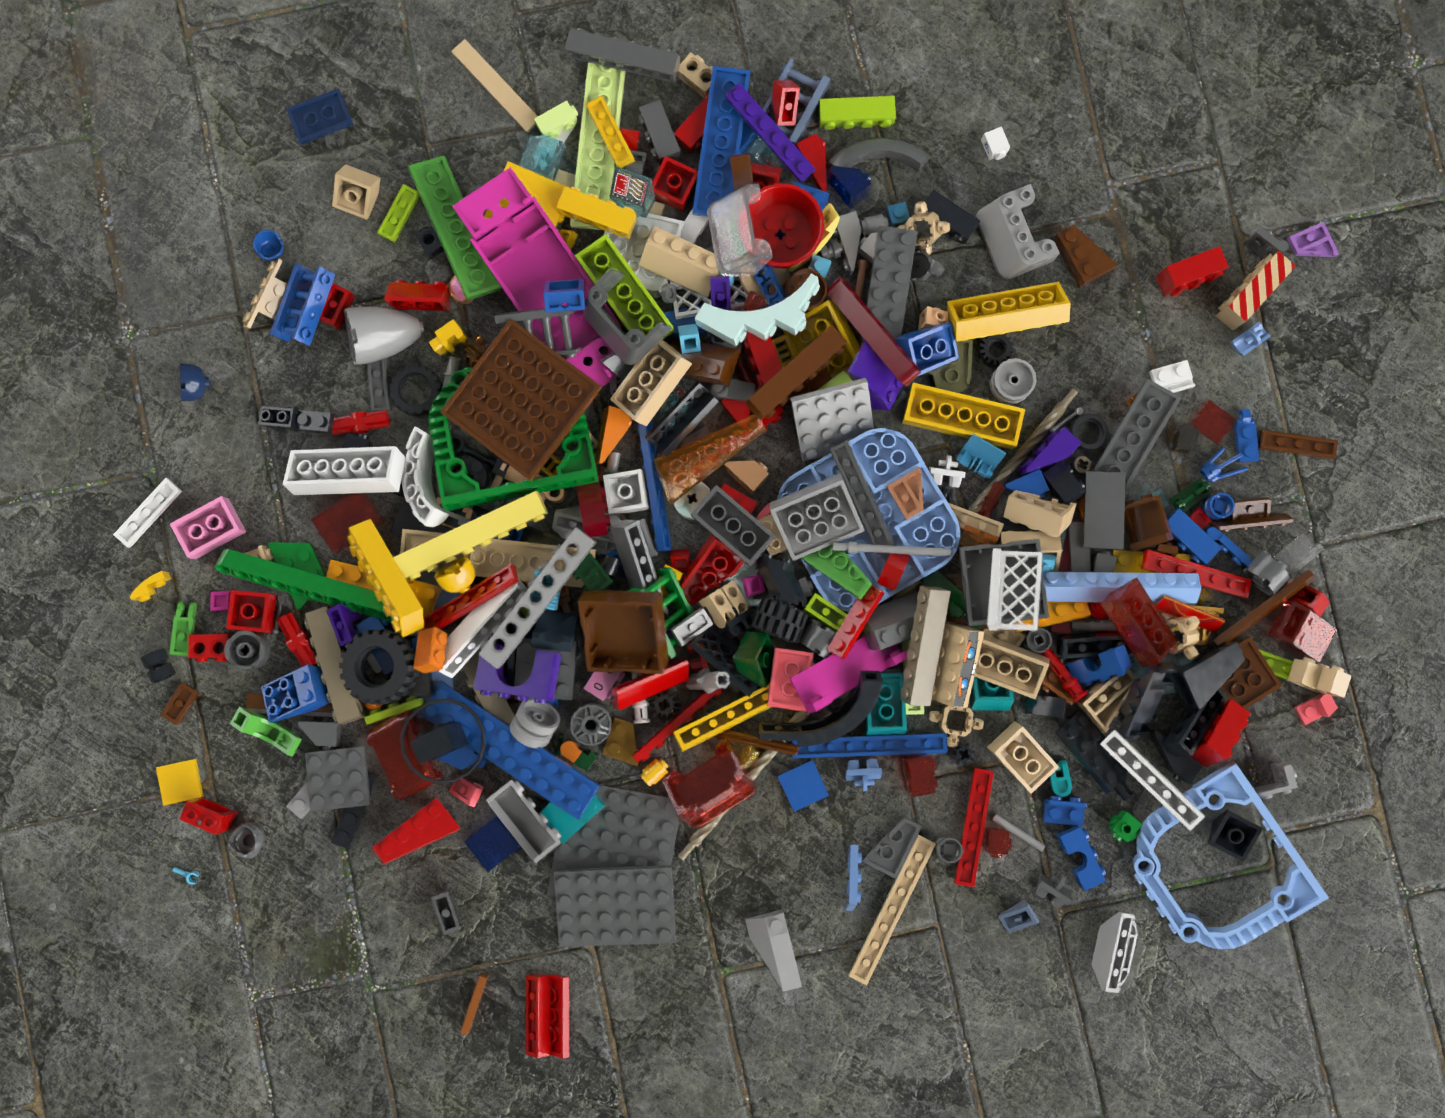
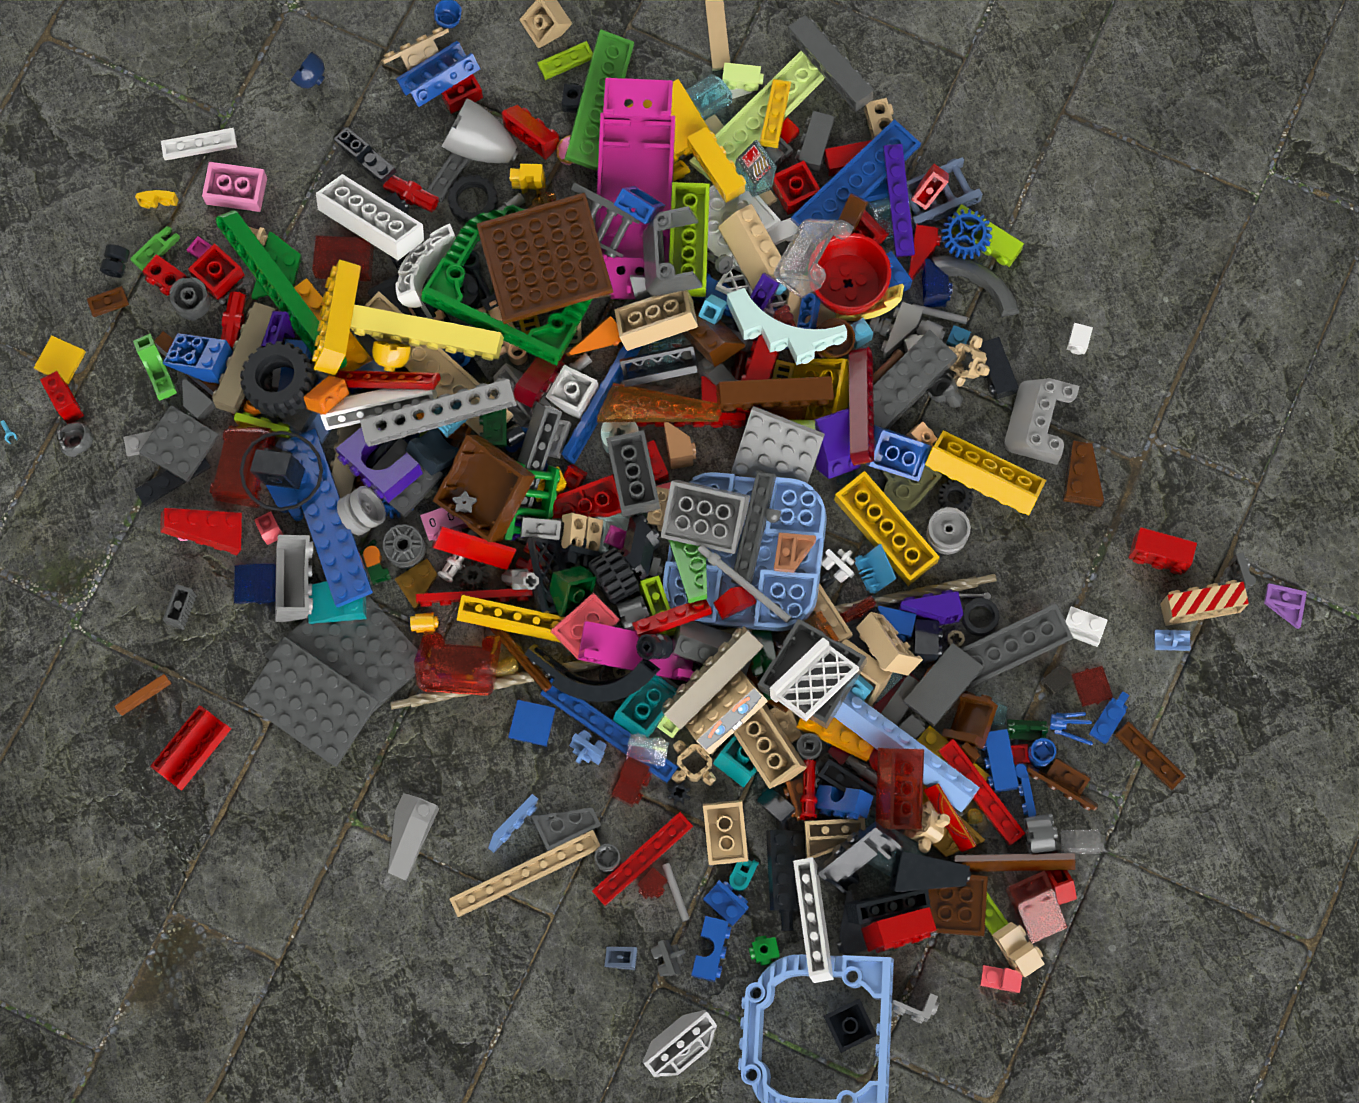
camera: 40 degrees right, 10 degrees down
(615, 649) = (467, 507): none -> dark grey plate
(839, 118) = (973, 230): none -> blue gear
(861, 656) = (654, 646): none -> black wheel
(870, 204) = (943, 314): none -> light grey bar
(871, 476) = (772, 515): none -> dark grey hinge
(915, 740) = (648, 750): none -> clear bracket

